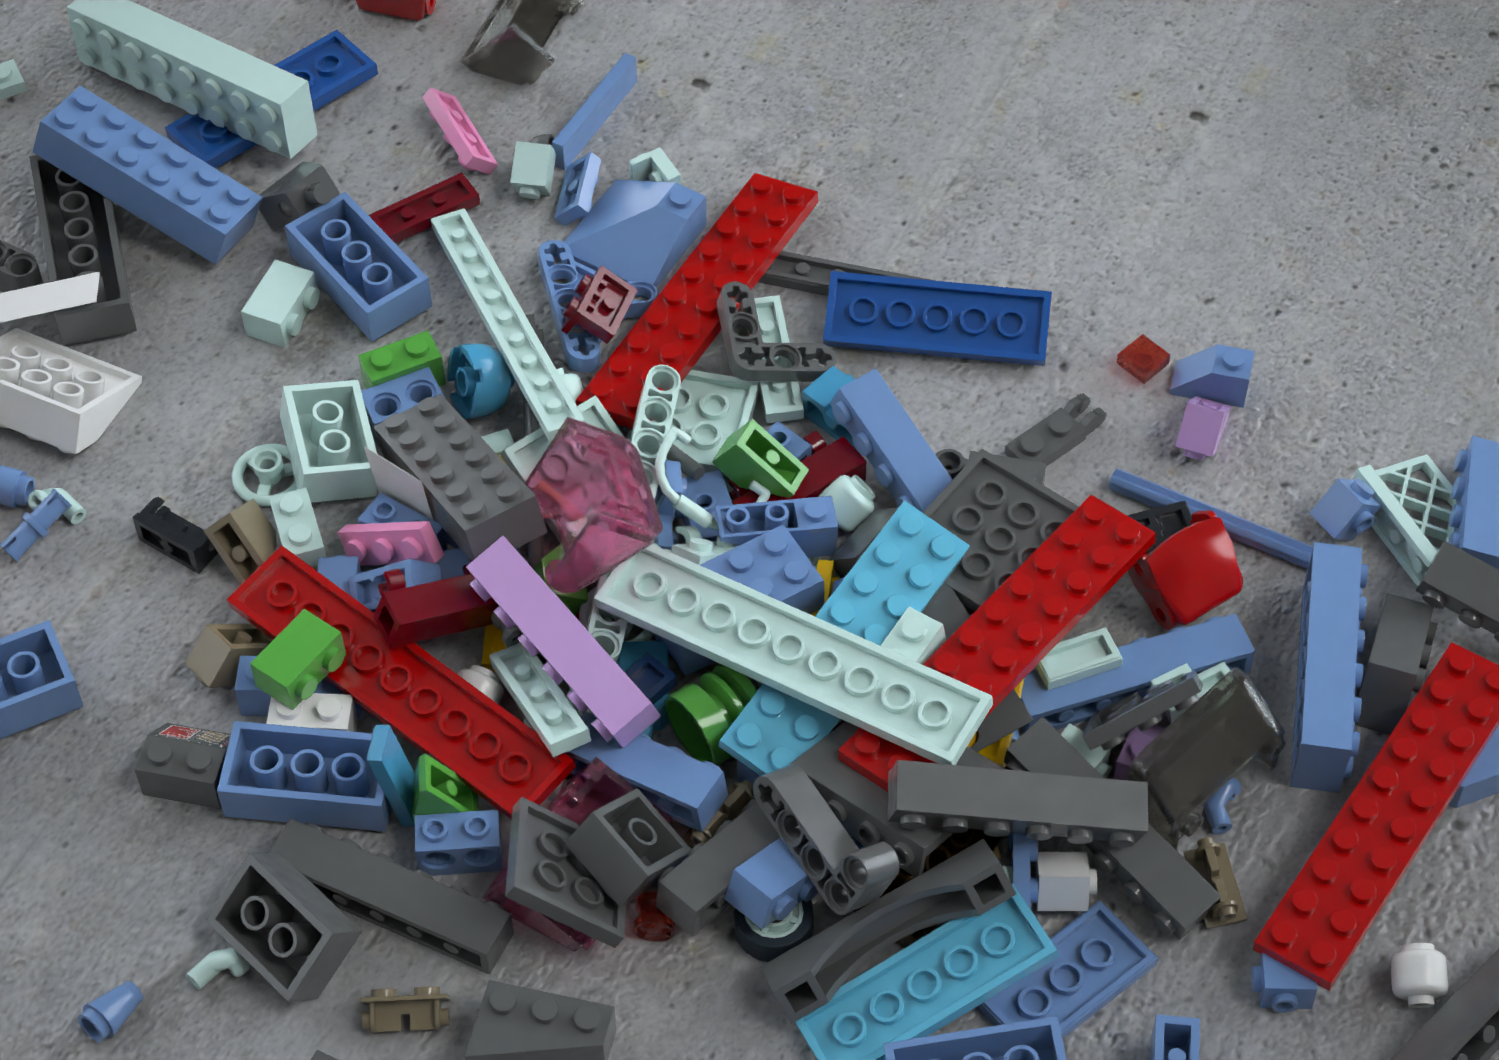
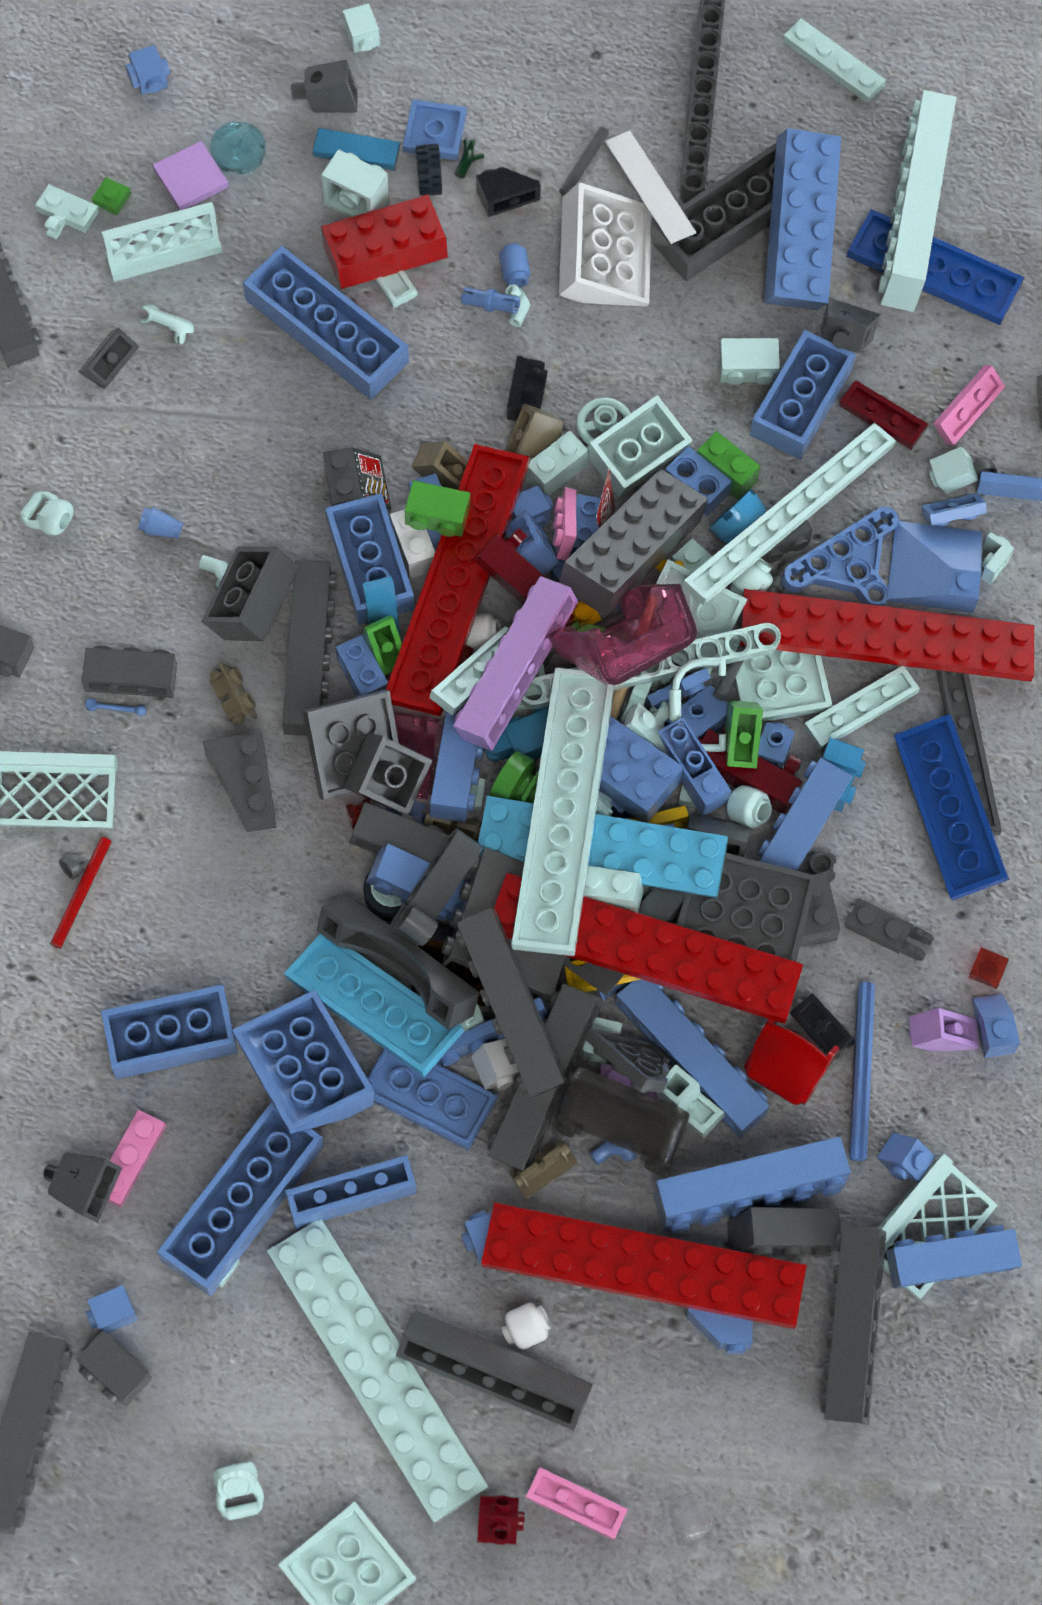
camera: 65 degrees right, 15 degrees up
(600, 304) = (837, 569): bracket -> none
(652, 677) = (527, 733): dark blue plate -> none
(754, 348) = (850, 686): dark grey beam -> none
(1079, 659) = (676, 1010): light aqua tile -> none

